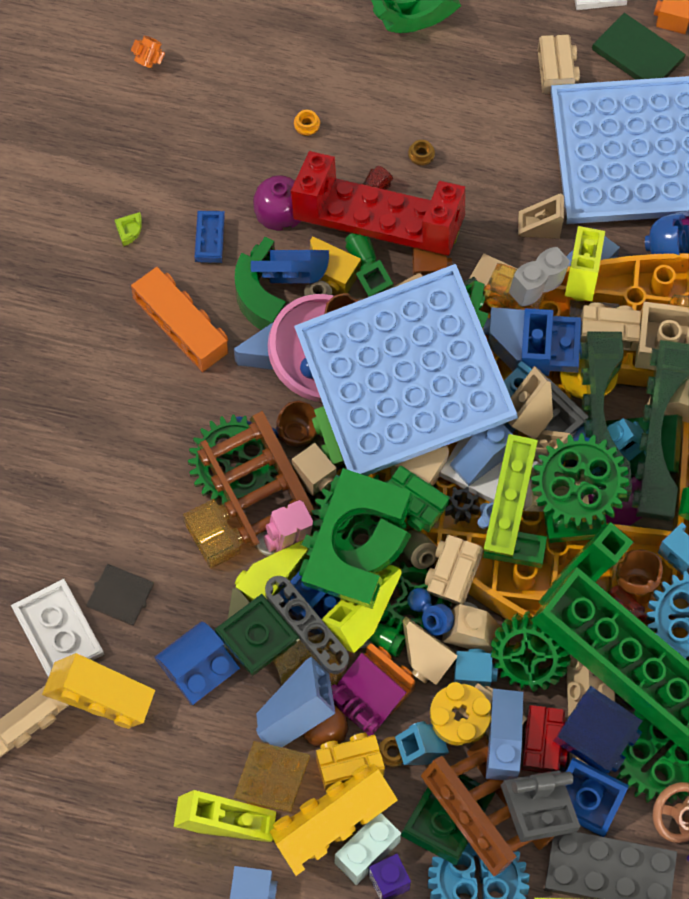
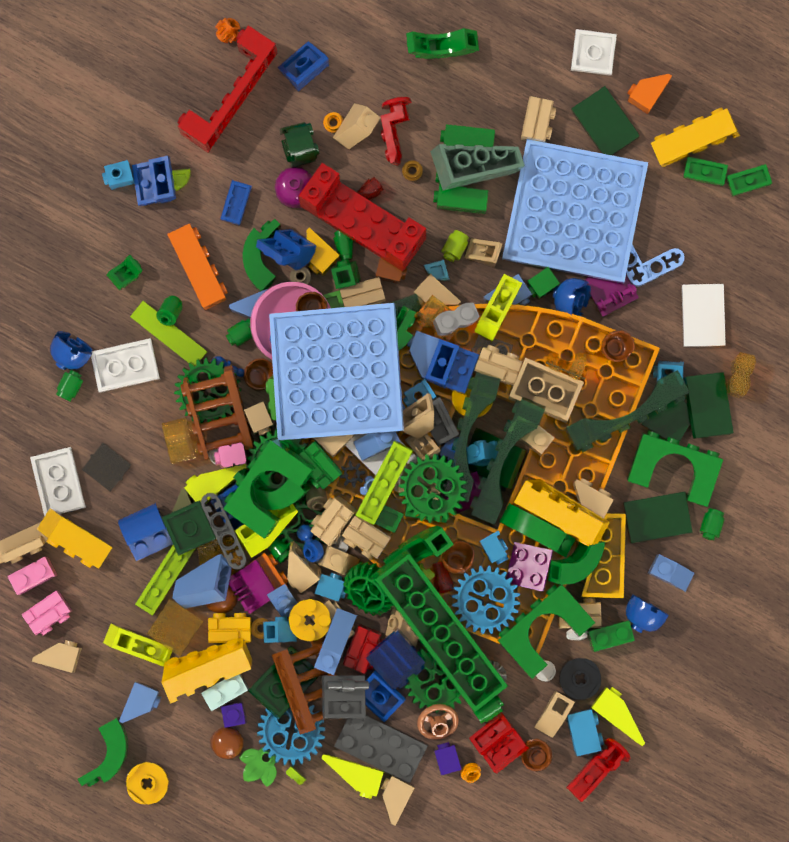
camera: 15 degrees right, 20 degrees up
(34, 457) = (69, 352): none -> blue cylinder
(44, 500) = (69, 385): none -> green brick
(50, 237) = (118, 175): none -> dark azure brick
(50, 759) = (32, 575): none -> bright pink brick
(83, 806) = (47, 613): none -> bright pink brick
(87, 347) = (125, 272): none -> green bracket
(99, 233) = (154, 181): none -> blue brick
(113, 461) = (125, 365): none -> white tile
(115, 862) = (60, 656): none -> tan slope
(145, 160) = (261, 53): none -> red plate
(157, 376) = (169, 310): none -> green brick
(160, 408) = (169, 335): none -> lime tile
(238, 719) = (163, 580): none -> lime plate
(254, 70) = (304, 65): none -> blue slope
(258, 383) = (239, 333): none -> green brick
(272, 149) = (299, 144): none -> dark green brick
(337, 115) = (356, 126): none -> tan slope
(380, 95) = (397, 114): none -> red piece
(414, 698) = (282, 600): none -> medium blue plate
(479, 165) = (463, 198): none -> green arch
(489, 249) = (438, 270): none -> medium azure tile
(499, 117) = (472, 164): none -> sand green wedge
(503, 221) = (455, 246): none -> lime brick
(505, 580) = (366, 537): none -> tan brick
(629, 235) = (542, 283): none -> green brick

